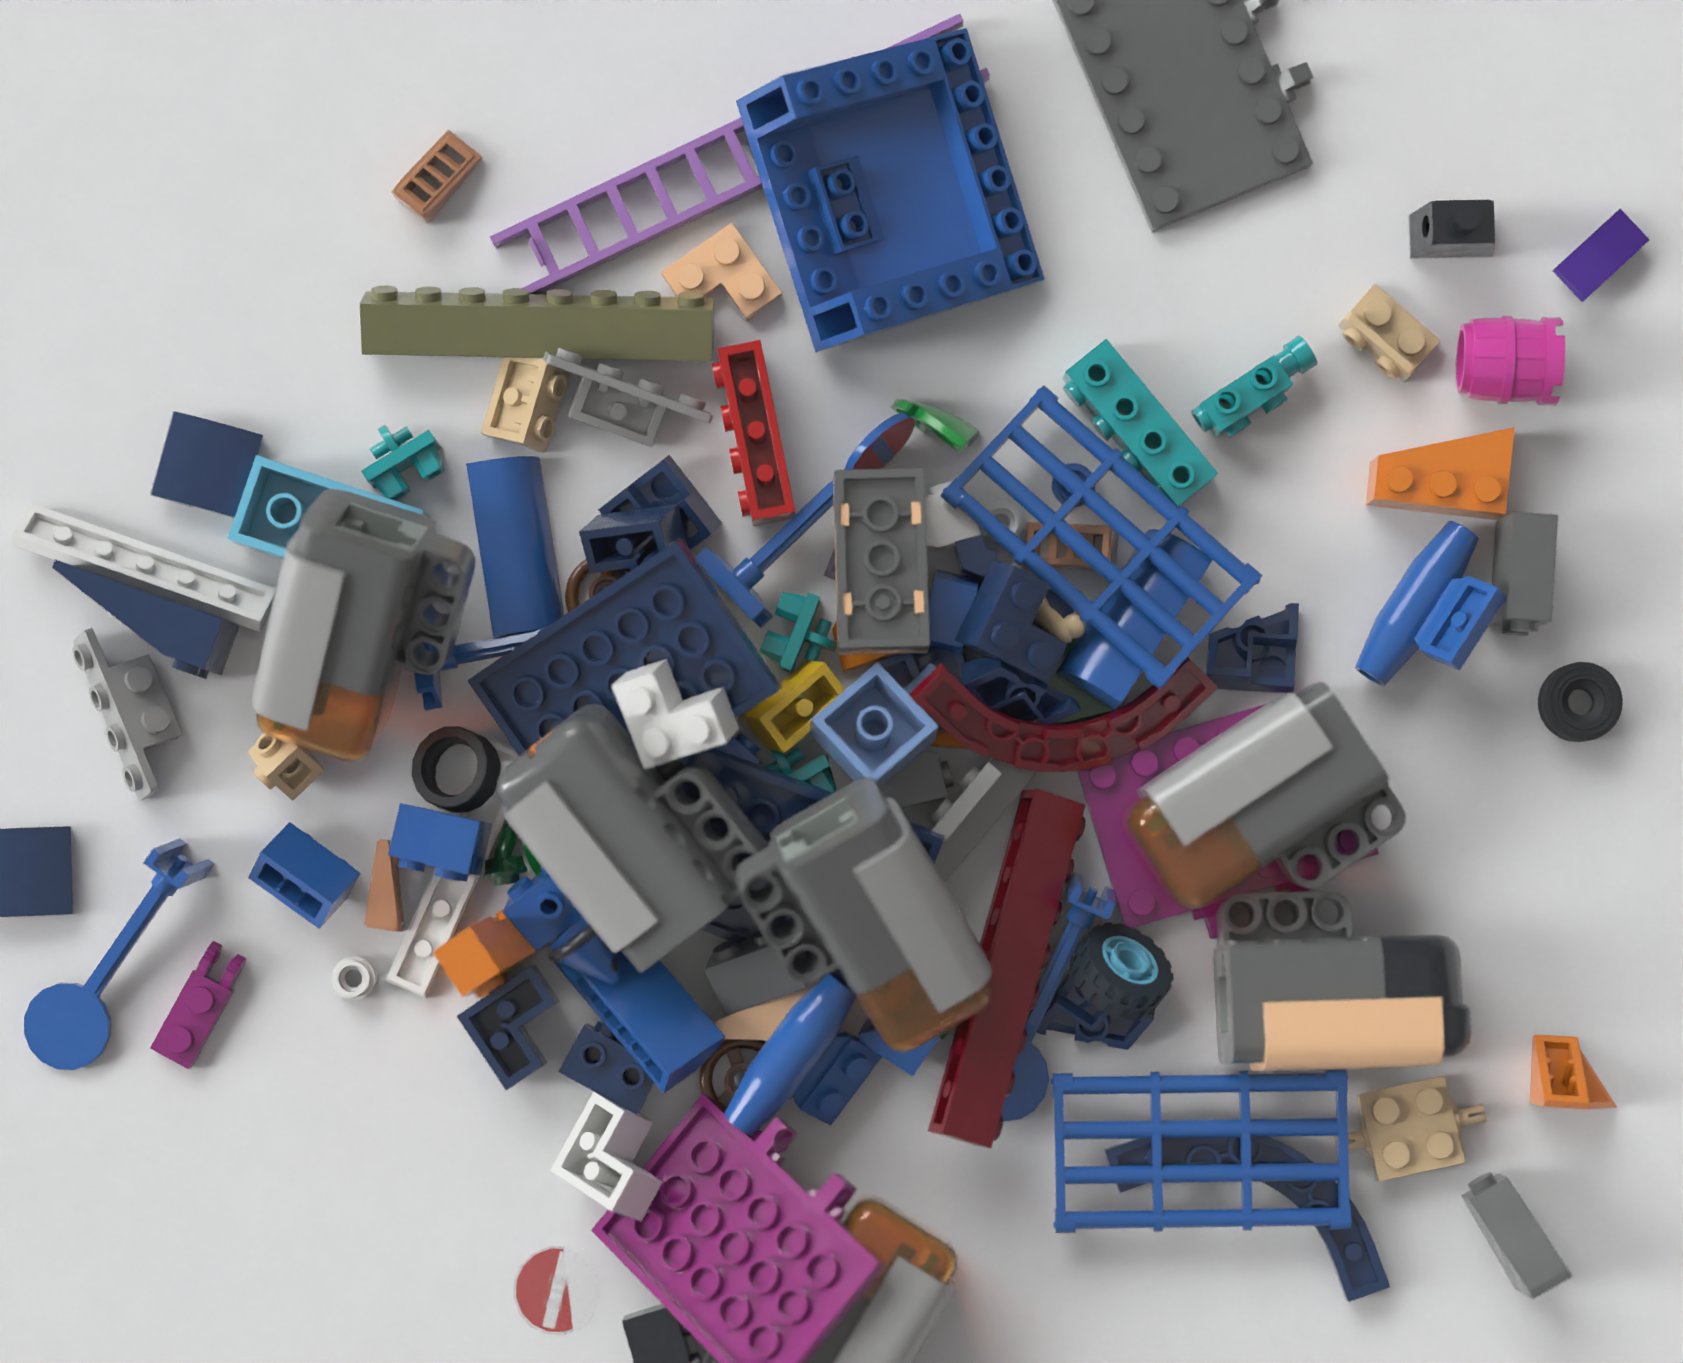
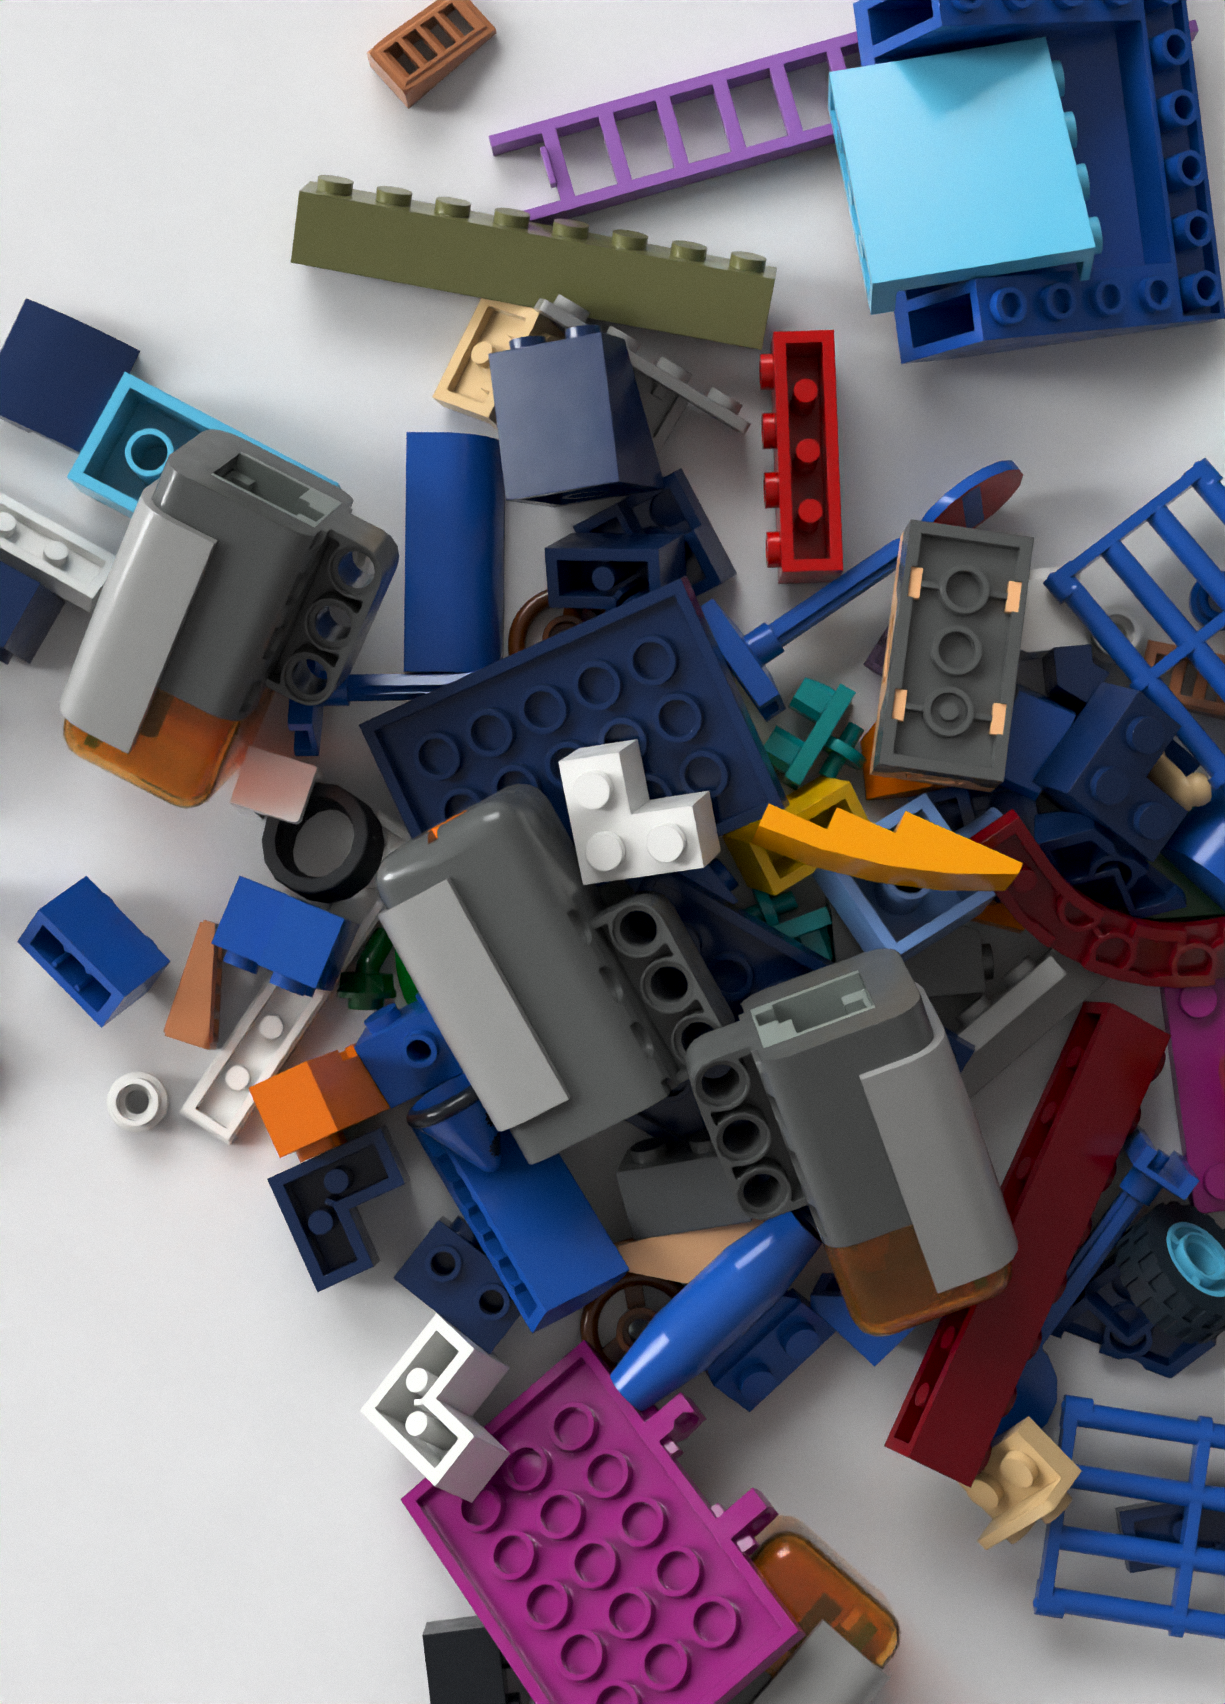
camera: 10 degrees right, 0 degrees up
(284, 766) = (92, 799): tan brick -> none
(414, 734) = (274, 786): none -> panel
(420, 451) = (319, 406): teal hips -> none
(557, 1290) = (340, 1571): clear piece -> none
(582, 437) = (571, 420): none -> dark blue slope
(727, 263) = (800, 225): light nougat plate -> none
(831, 210) = (961, 168): none -> medium azure panel
(873, 709) = (910, 856): none -> light orange slope
(946, 426) = (1059, 486): green brick -> none
(1028, 1139) = (1022, 1483): none -> tan bracket

